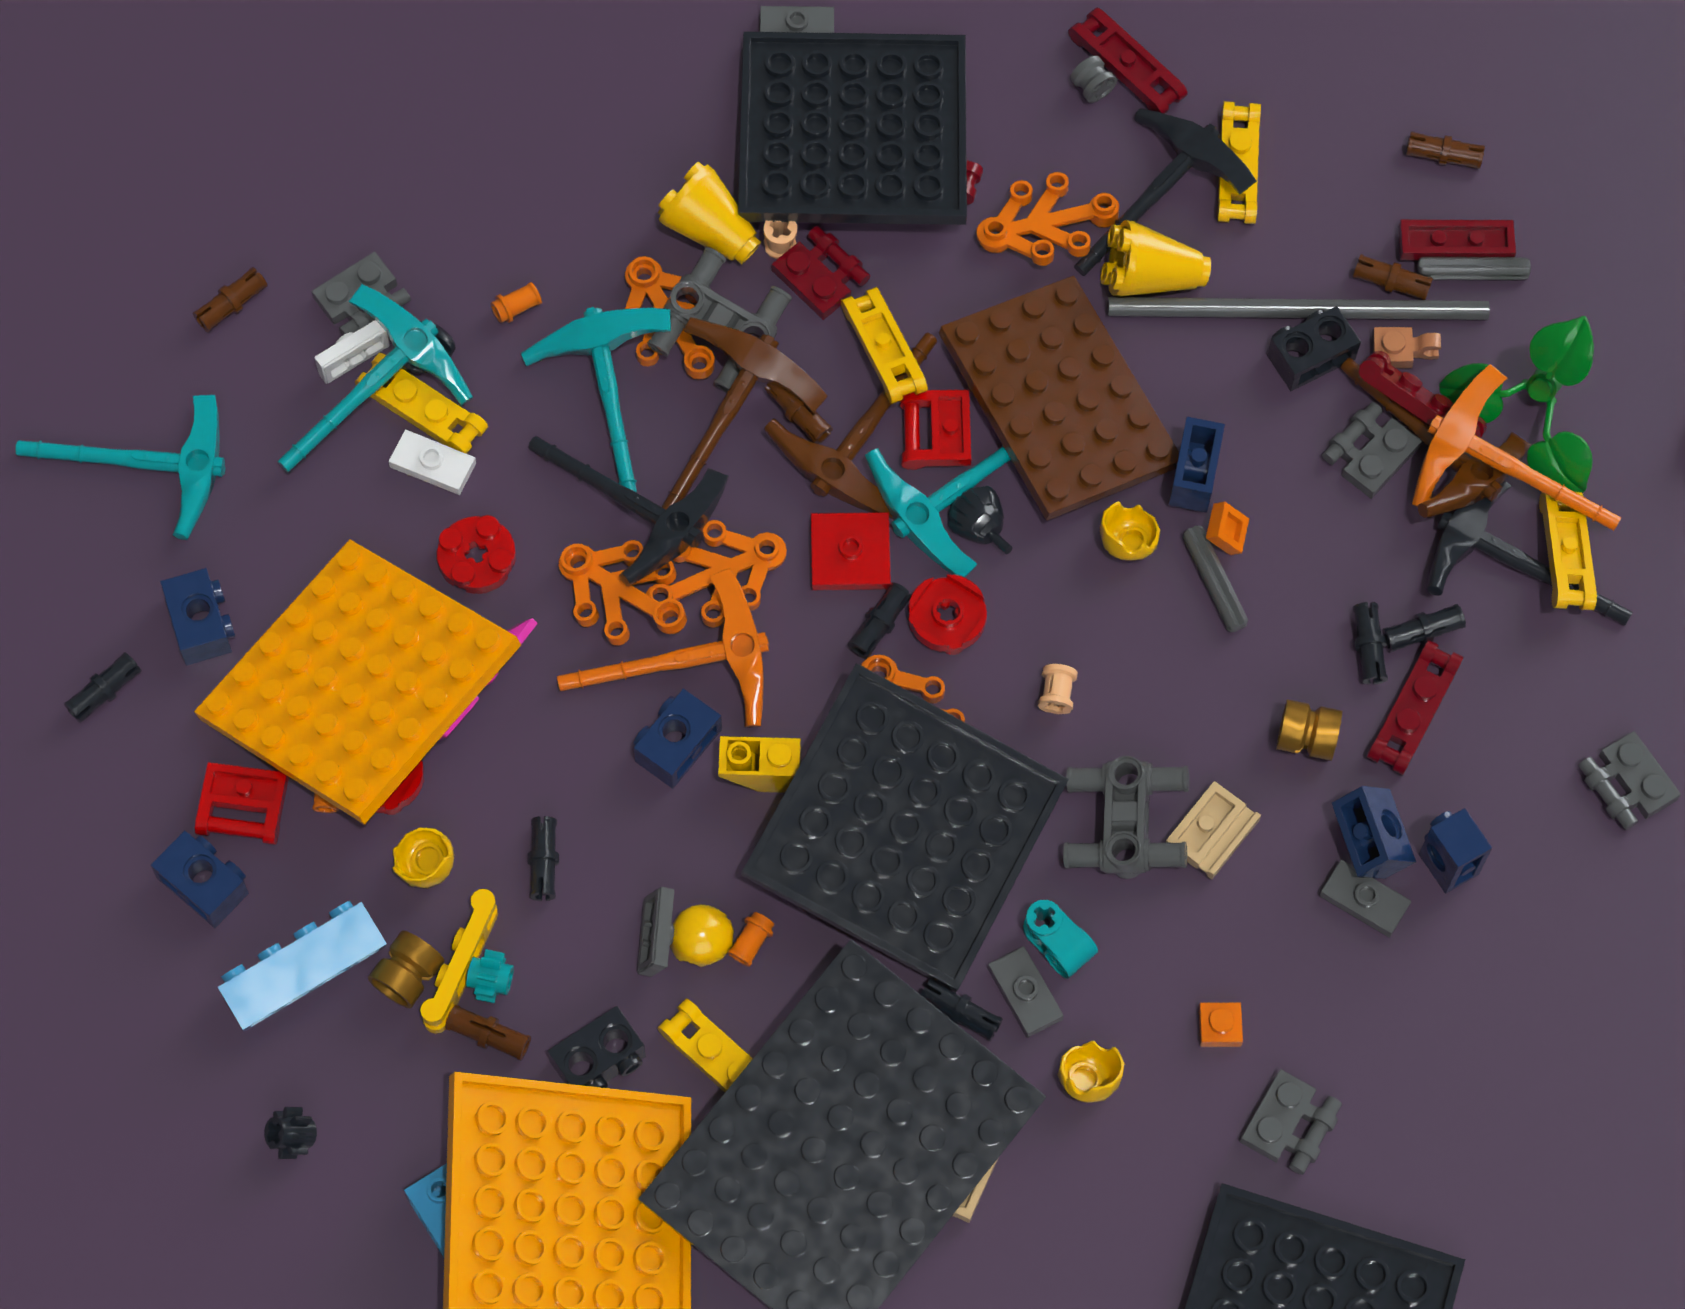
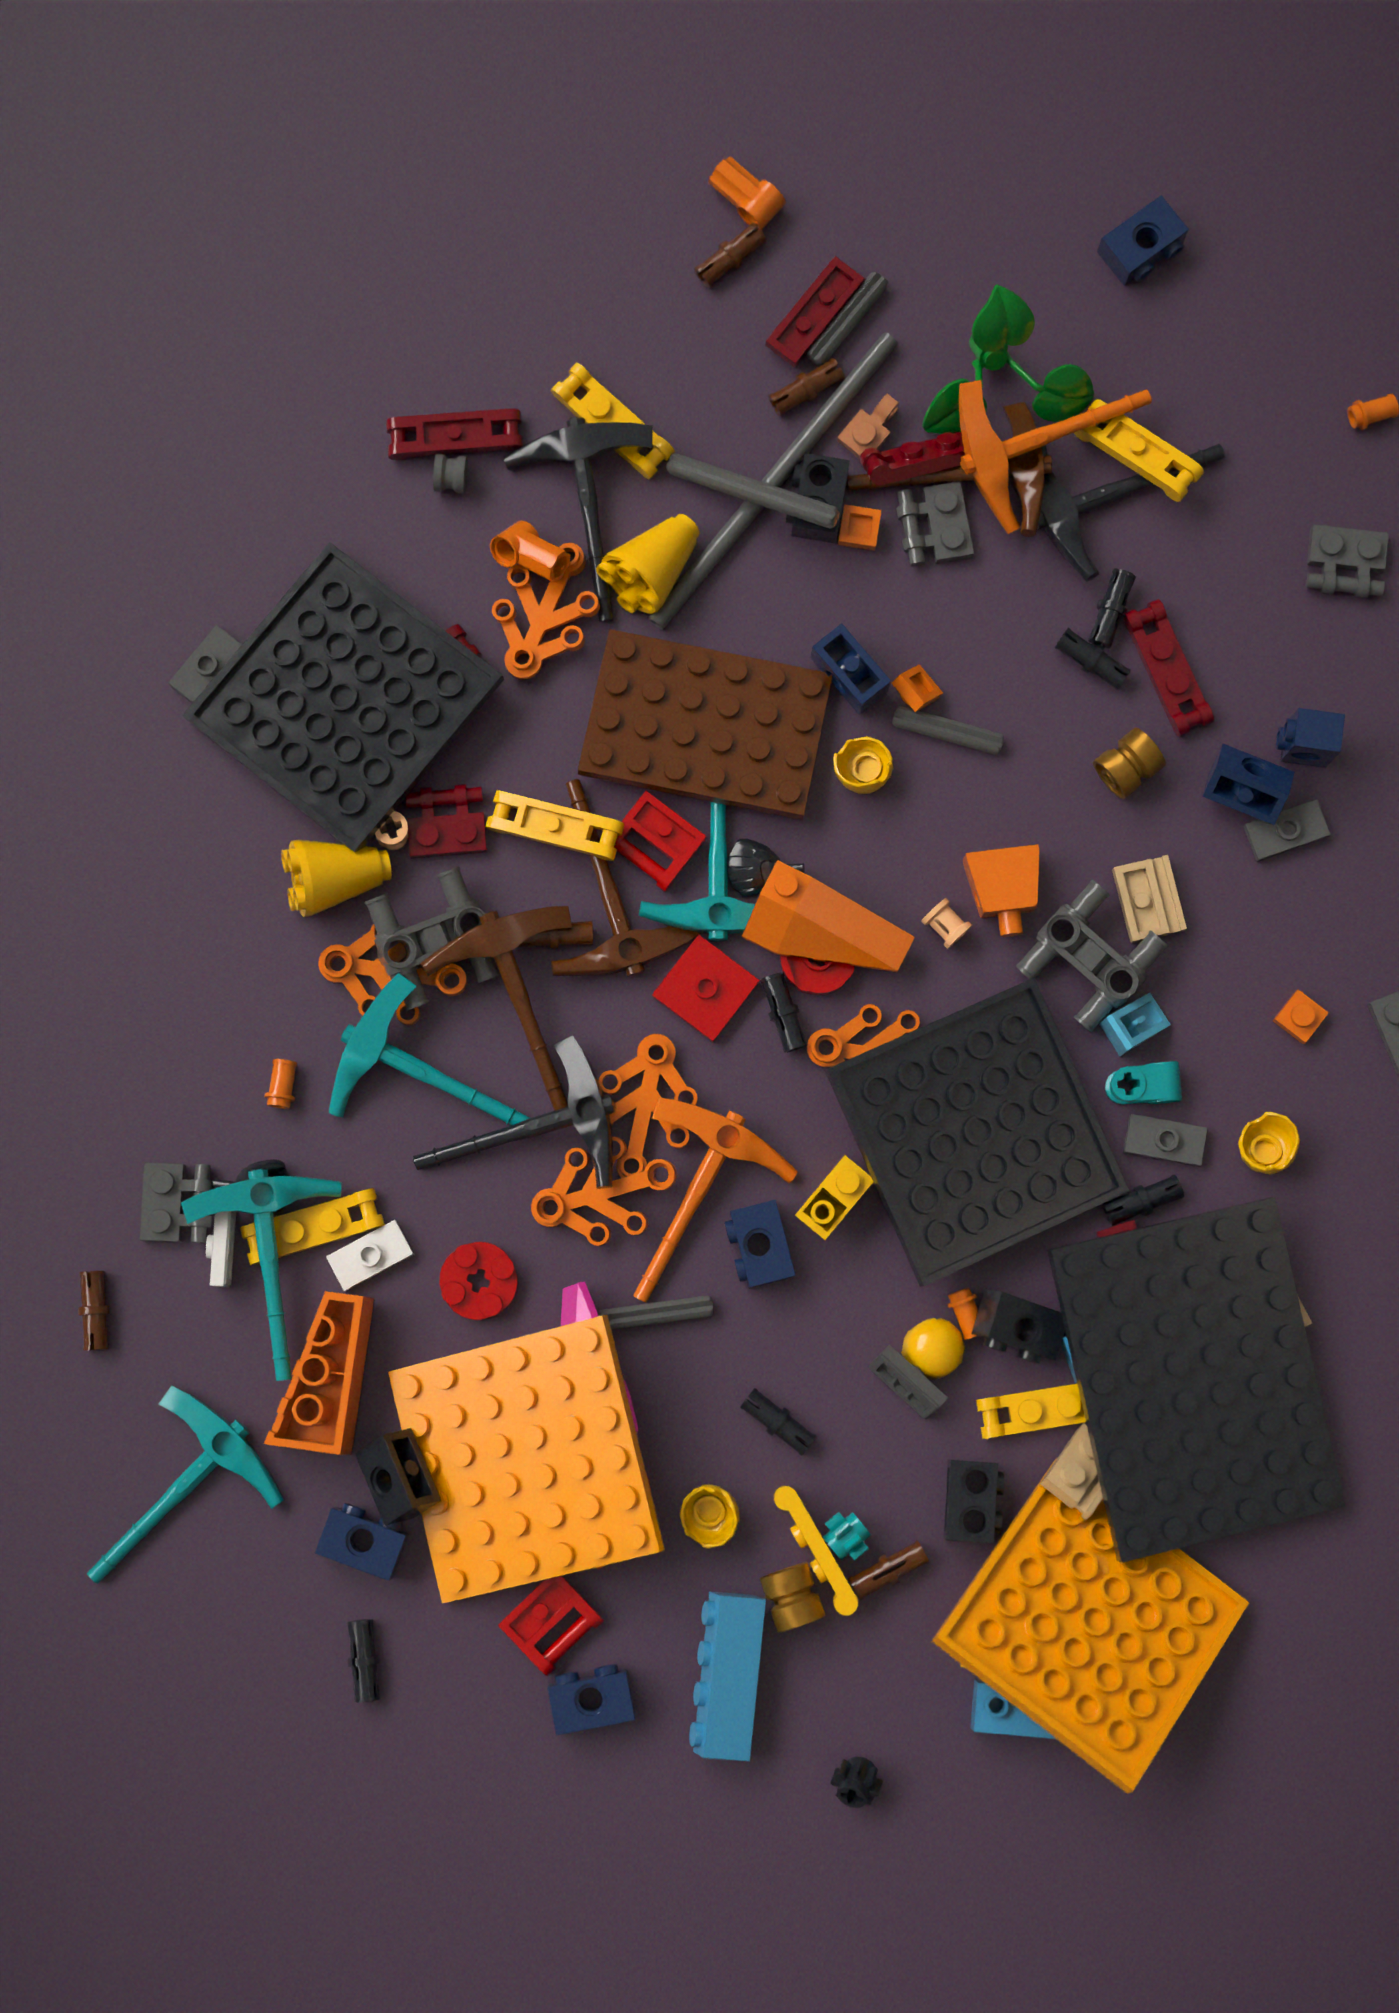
camera: 50 degrees left, 15 degrees up
(269, 599) = (397, 1476): none -> black brick
(309, 495) = (327, 1380): none -> orange wedge
(557, 702) = (659, 1312): none -> dark grey axle
(677, 1116) = (1075, 1475): none -> tan plate
(763, 956) = (998, 1319): none -> black brick
(969, 578) = (816, 922): none -> orange wedge
(1083, 172) = (522, 546): none -> orange piece
(1100, 893) = (1134, 1024): none -> medium azure slope
(1128, 709) = (1004, 884): none -> orange torso
(1273, 292) = (753, 490): none -> dark grey axle
(1317, 394) = (859, 527): none -> orange plate
(1503, 132) = (753, 199): none -> orange piece

